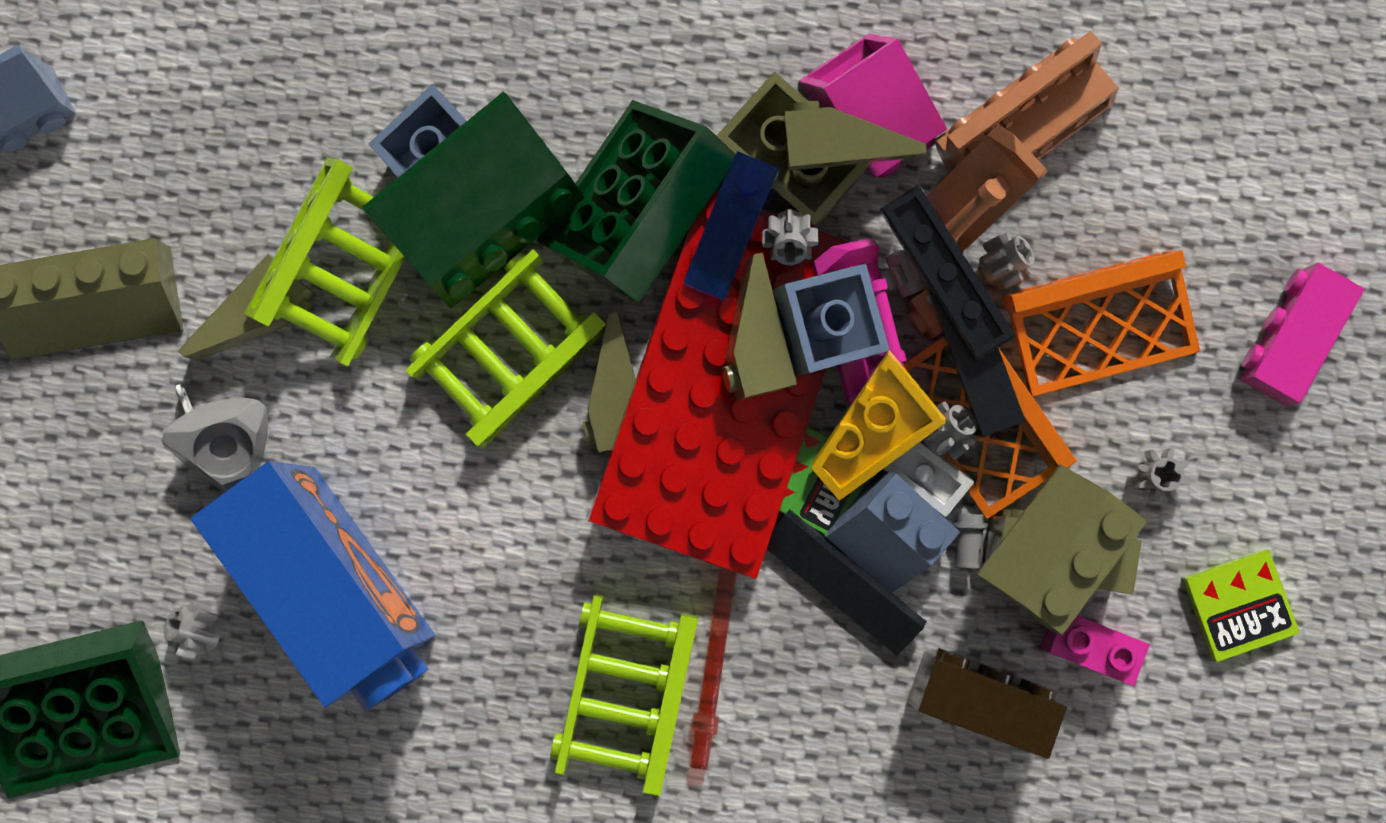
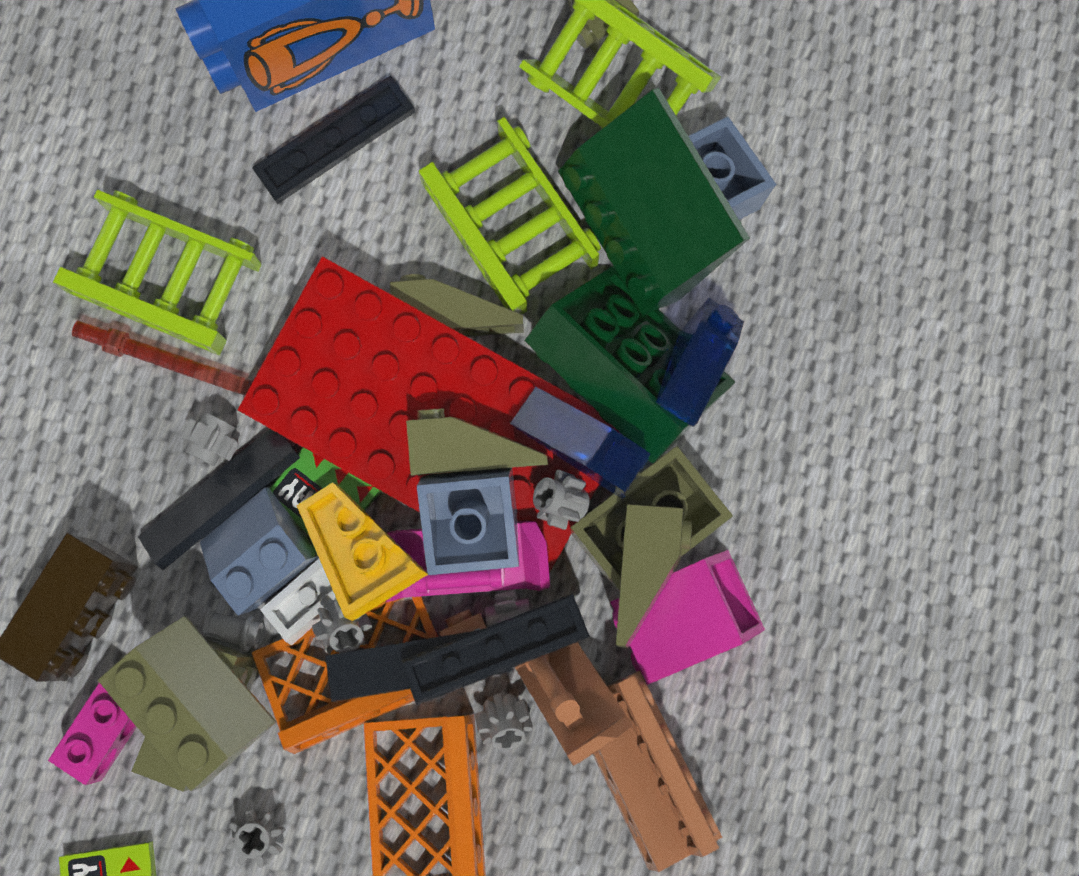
camera: 95 degrees right, 5 degrees down
(452, 546) = (333, 139): none -> black tile
(626, 129) = (699, 360): none -> clear blue slope
(788, 603) = (209, 439): none -> light grey gear

